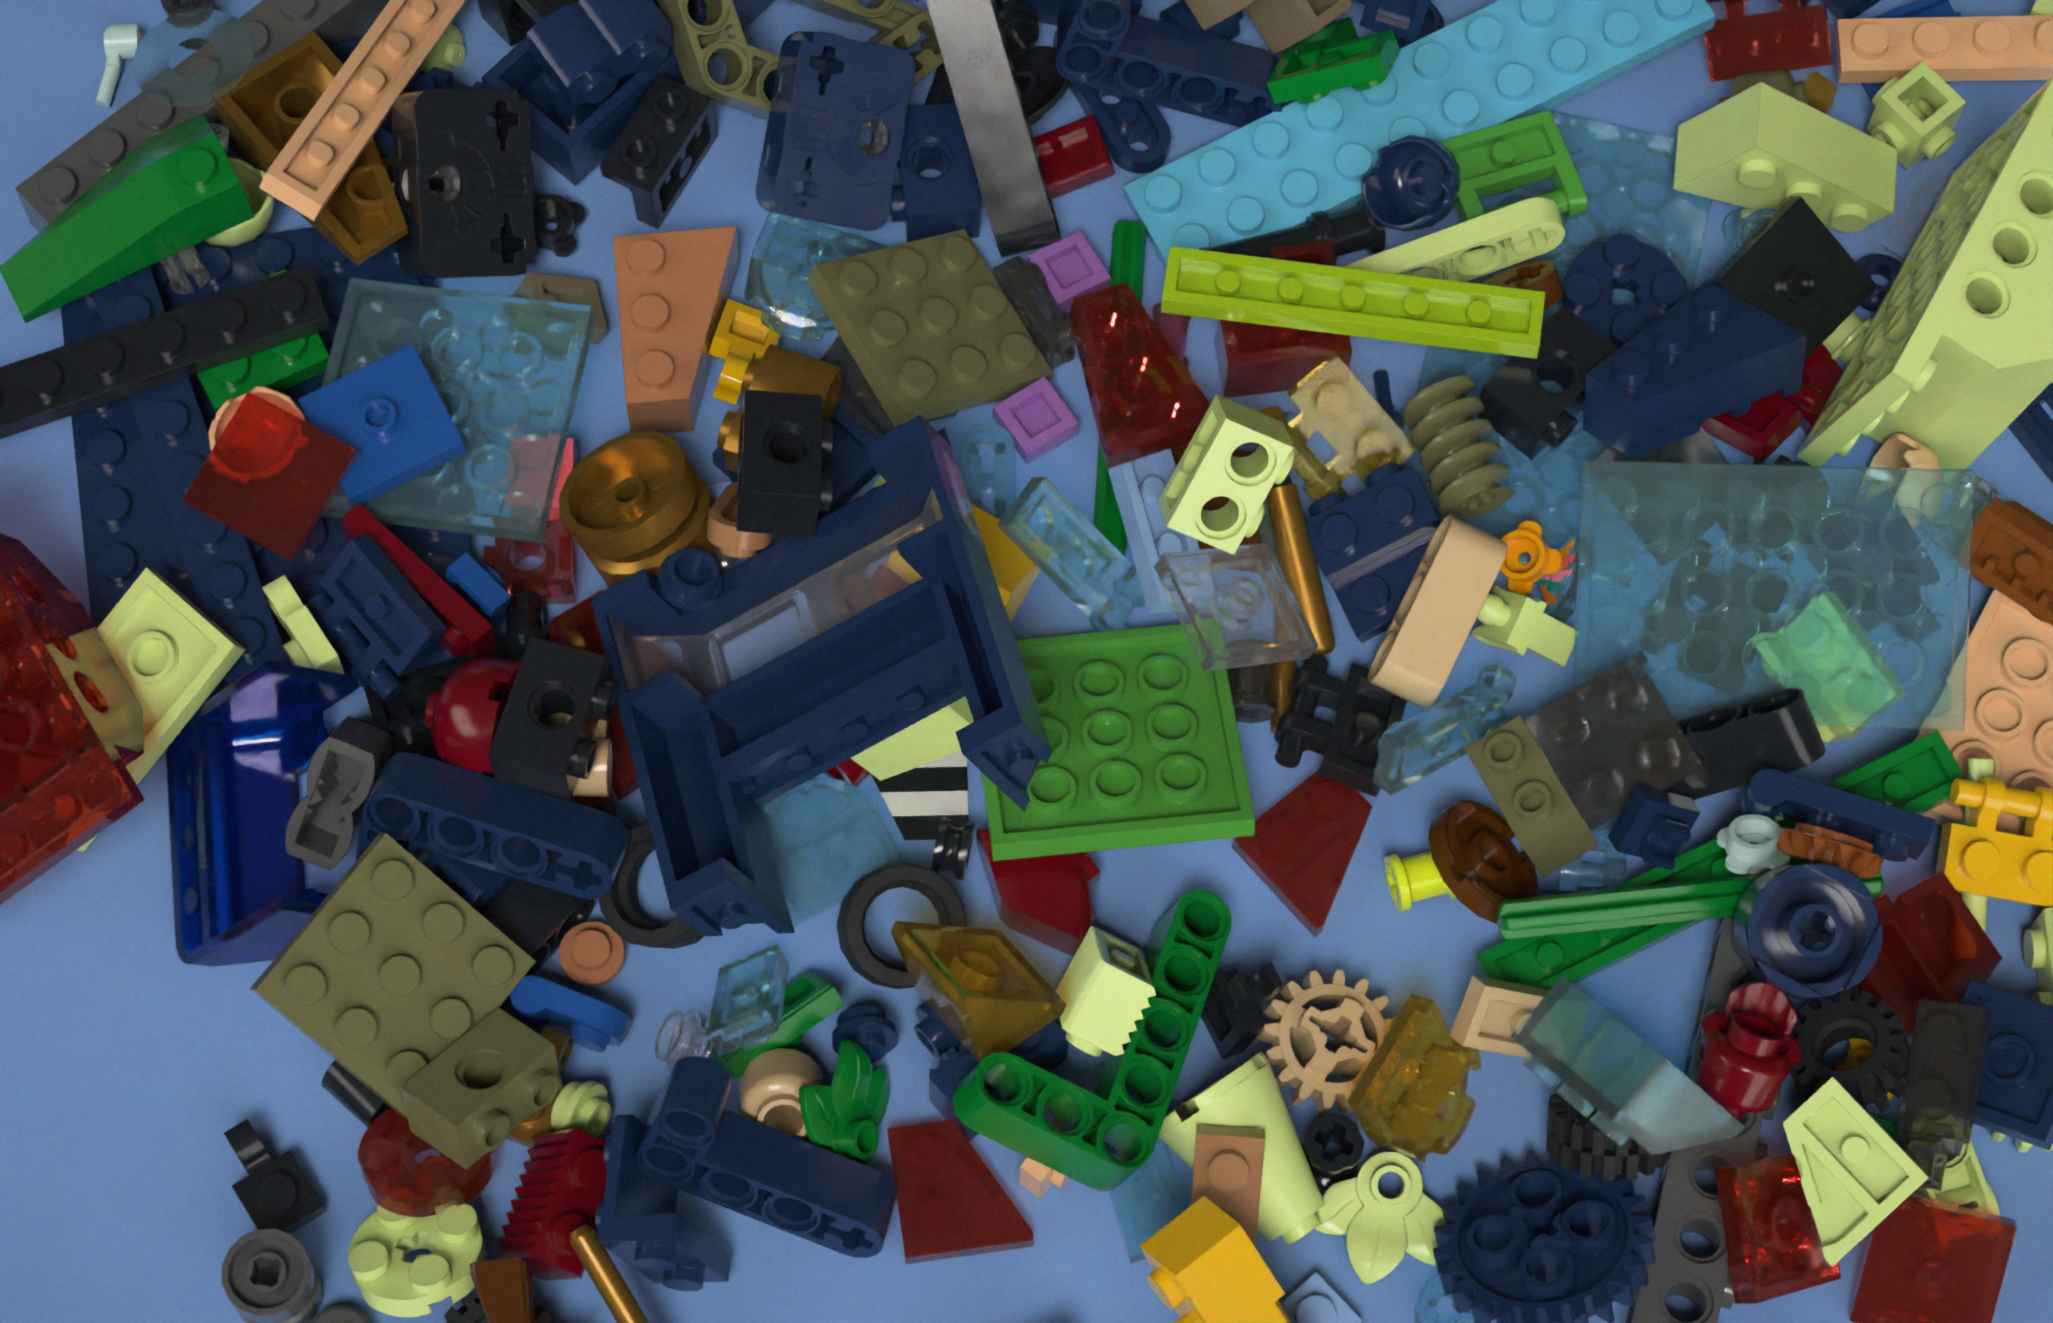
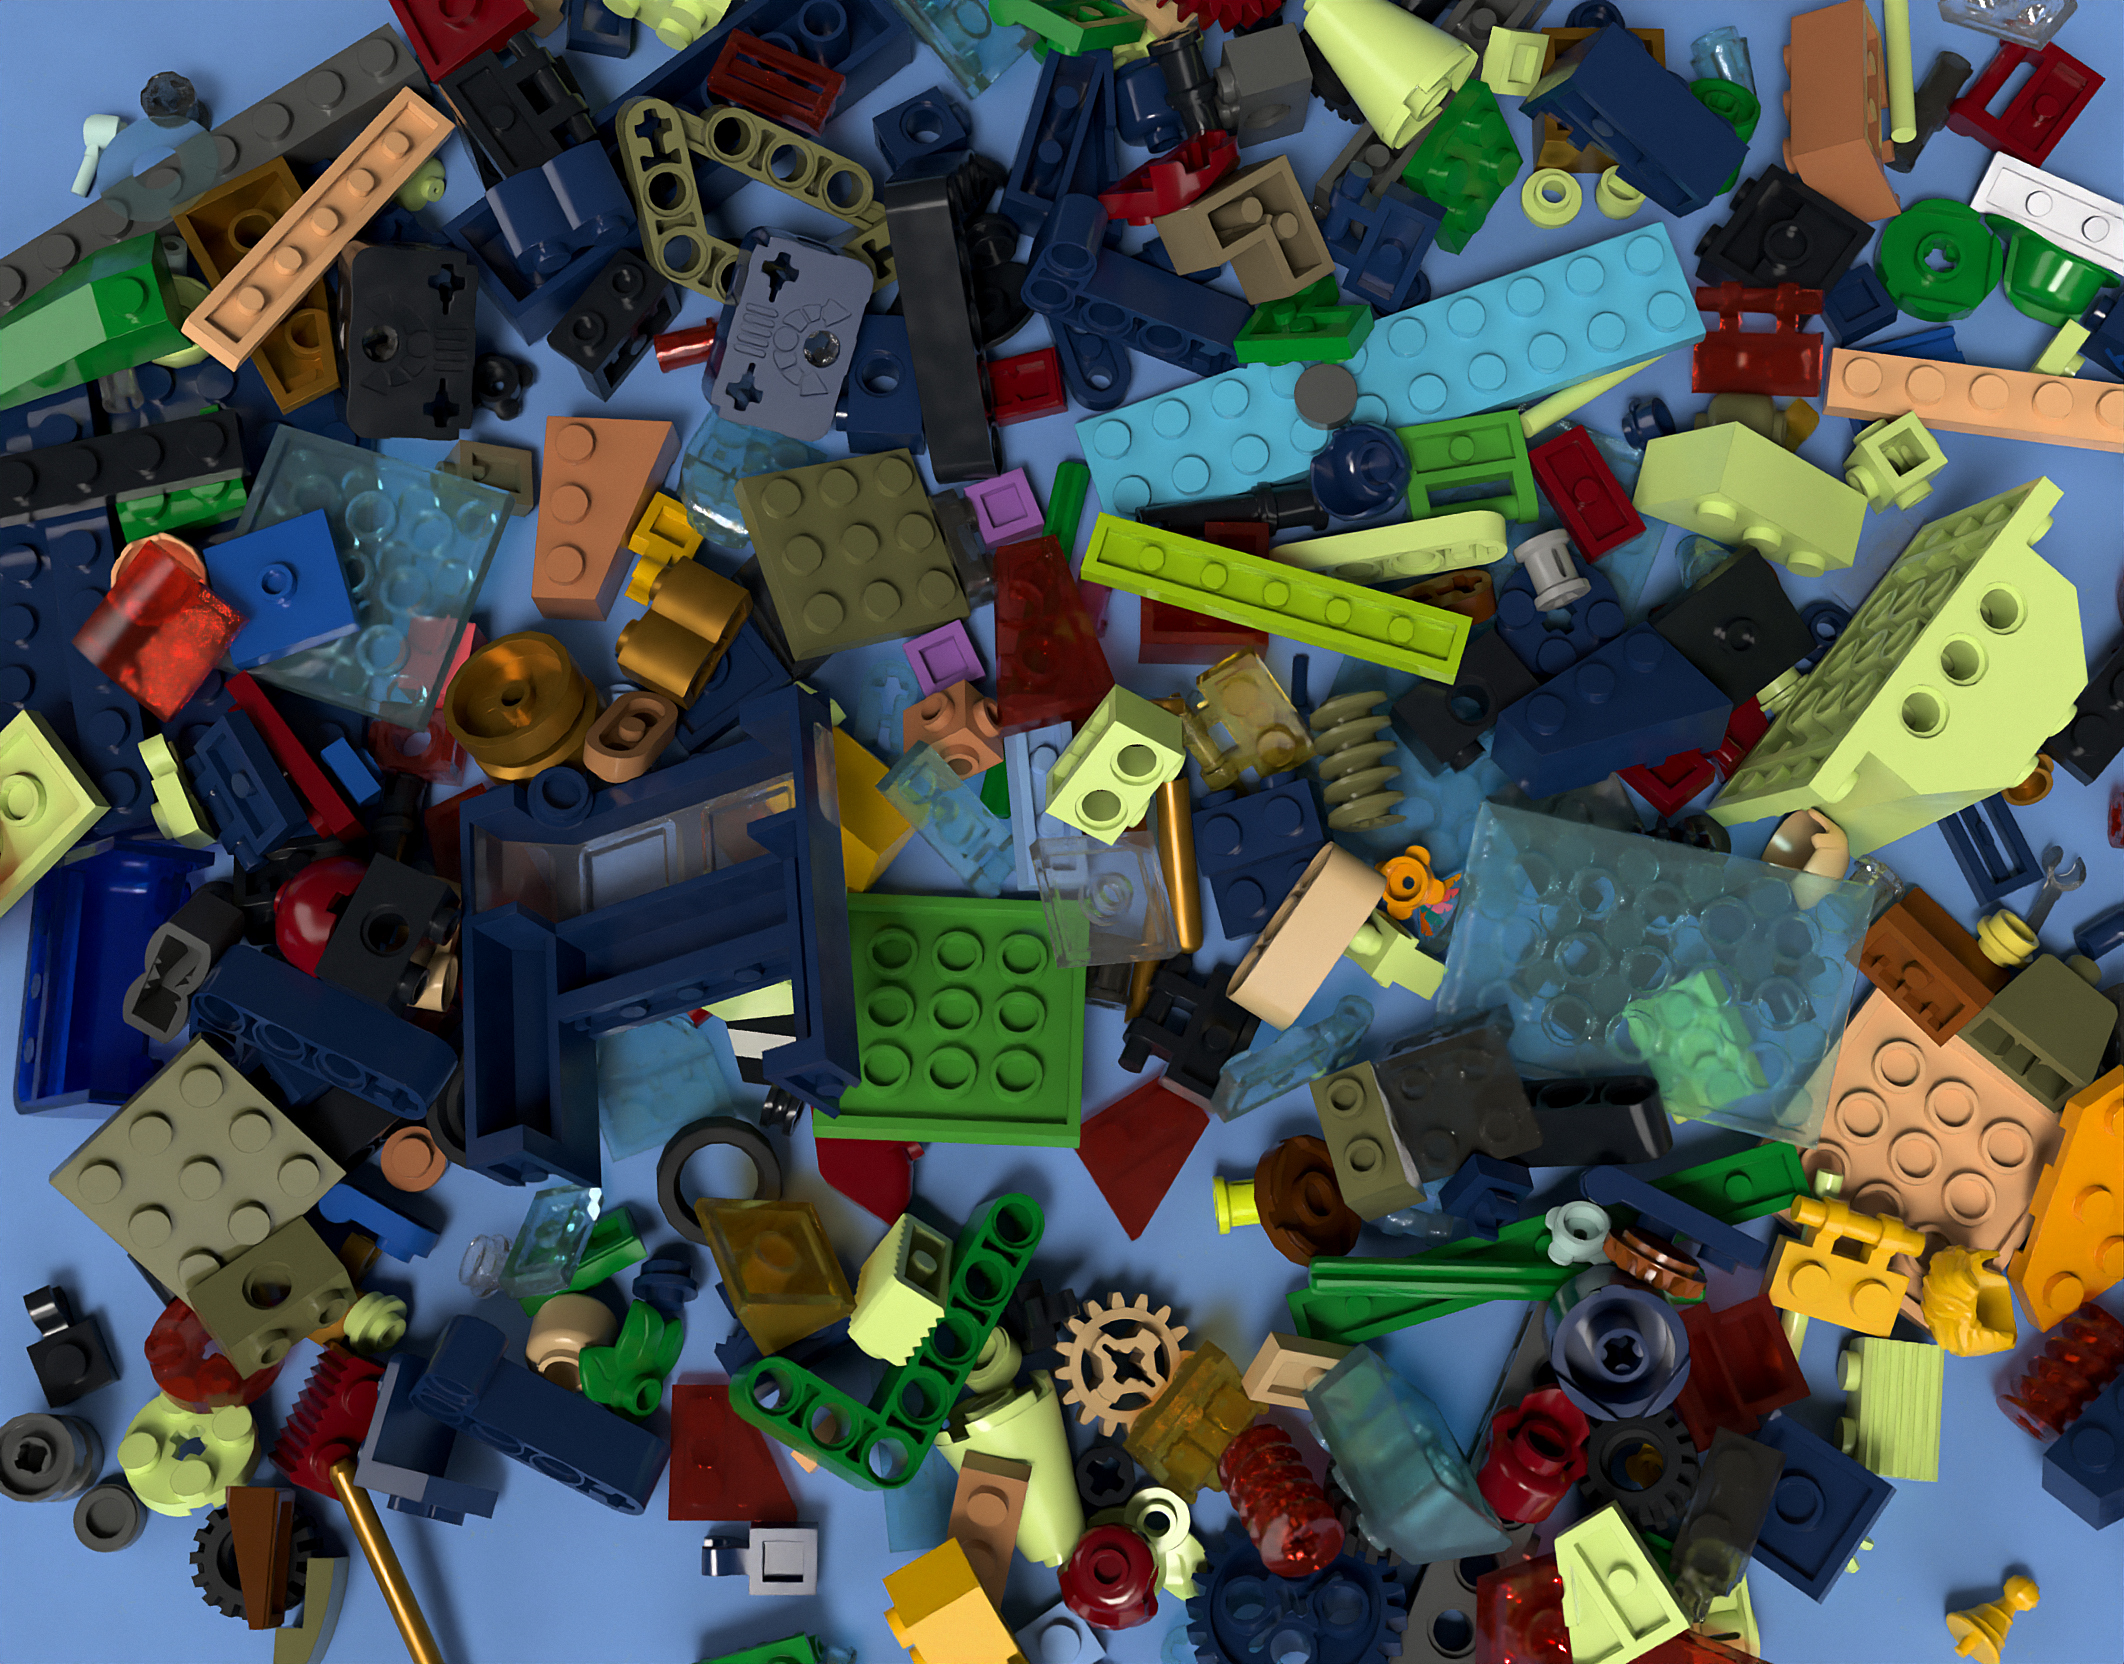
camera: 10 degrees right, 10 degrees up
(733, 163) = (685, 346): none -> clear red pin
(782, 463) = (658, 661): black brick -> none
(1020, 1277) = (777, 1558): none -> plate
(1069, 463) = (958, 727): none -> nougat brick
(1204, 1061) = (996, 1363): none -> yellowish green tile
(1357, 1238) = (1111, 1577): none -> dark red head
(1364, 121) = (1325, 396): none -> dark grey tile
(1509, 1138) = (1279, 1502): none -> clear red piece
(1604, 94) = (1574, 397): none -> yellowish green bar
(1610, 245) = (1551, 570): none -> light grey bush
(1628, 180) = (1585, 494): none -> dark red plate
(1672, 111) = (1647, 422): none -> dark blue plate

